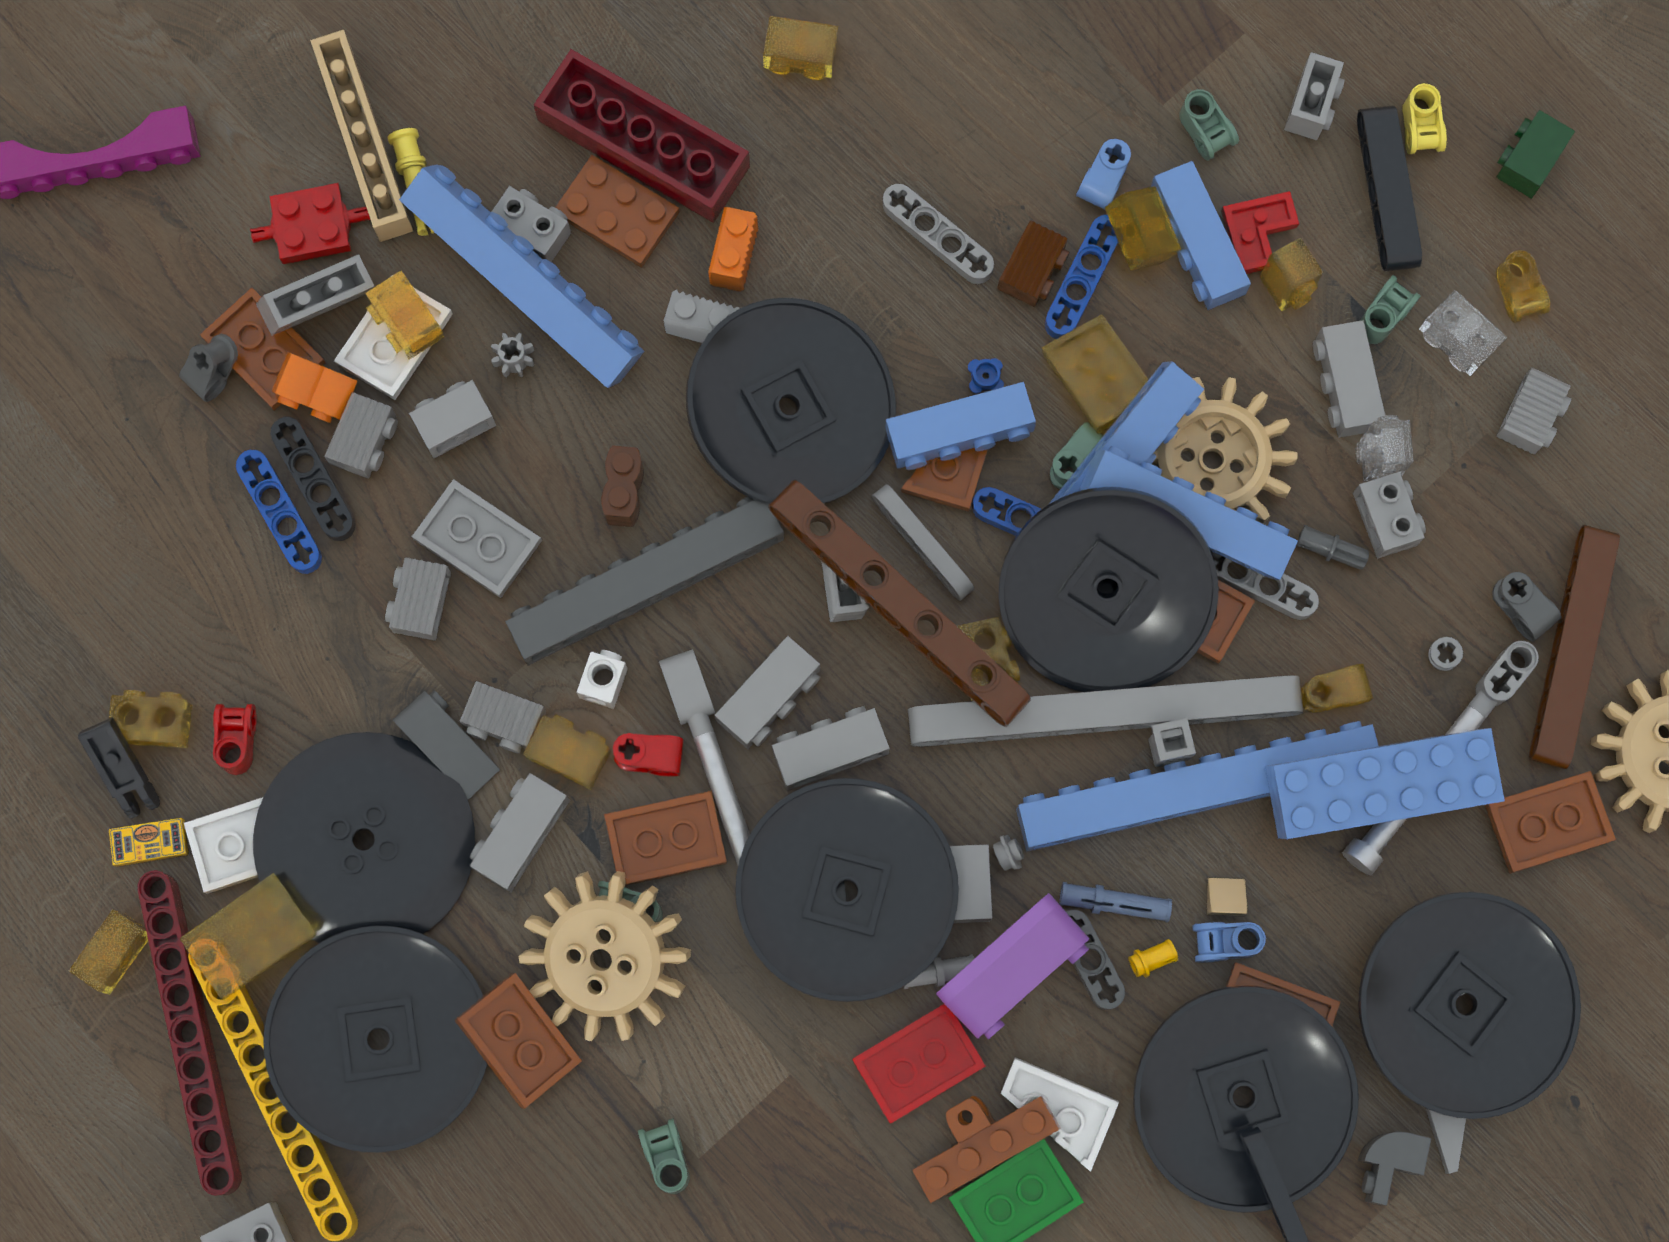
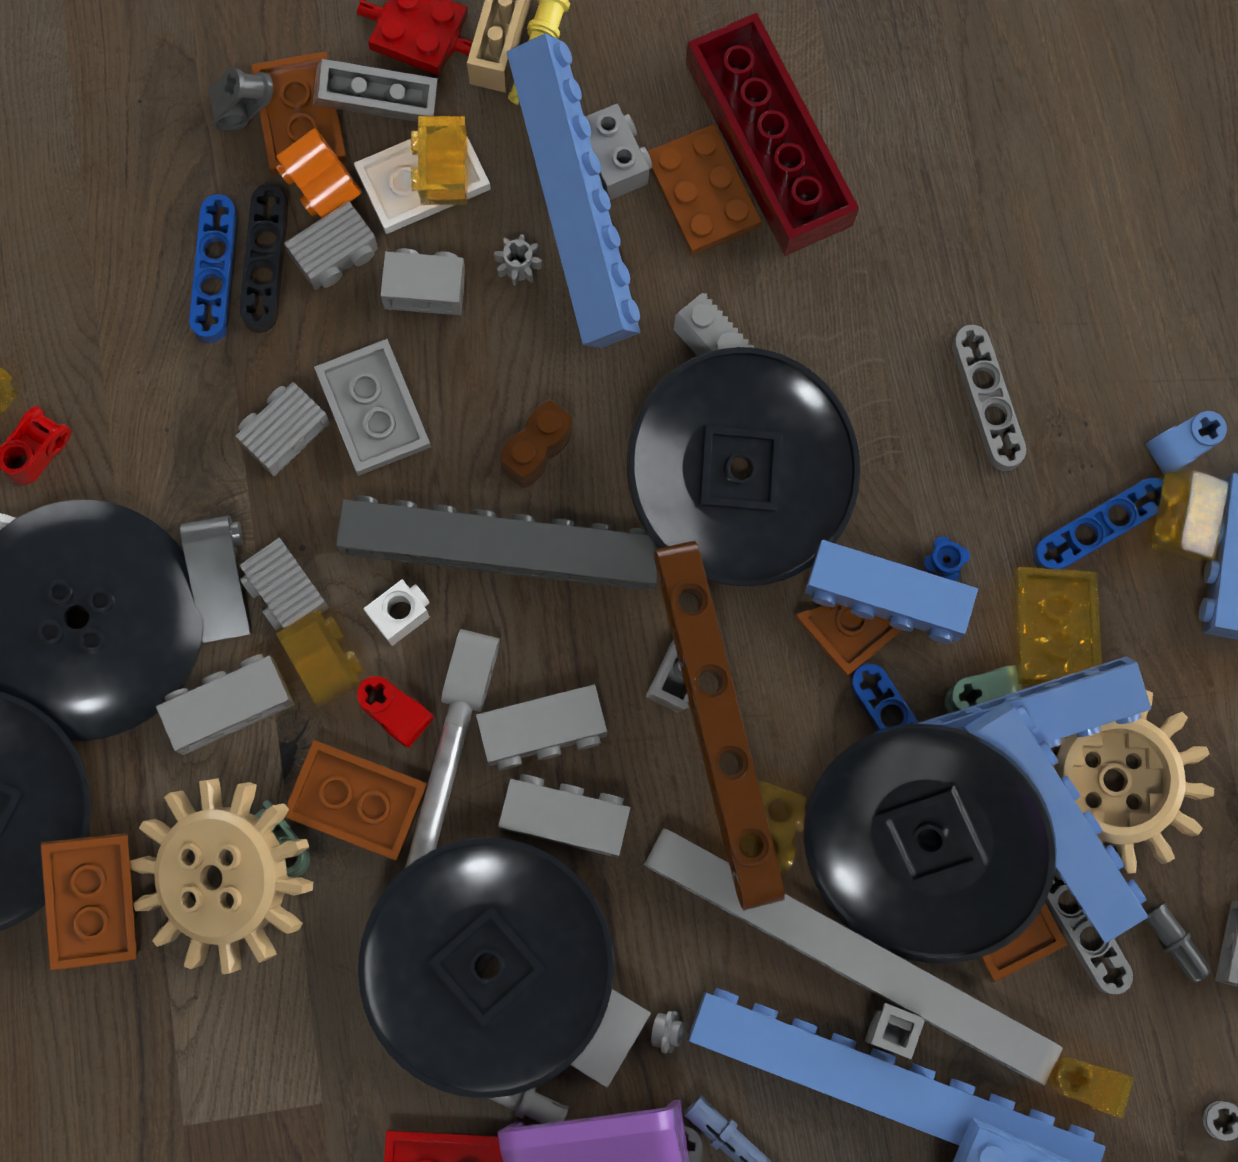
camera: 30 degrees right, 0 degrees up
(665, 1154) = (151, 1102): sand green piece -> none
(733, 249) = (786, 290): orange brick -> none
(800, 47) = (972, 145): clear yellow brick -> none
(923, 542) = (782, 679): light grey beam -> none
(1033, 263) = (1061, 482): reddish brown brick -> none

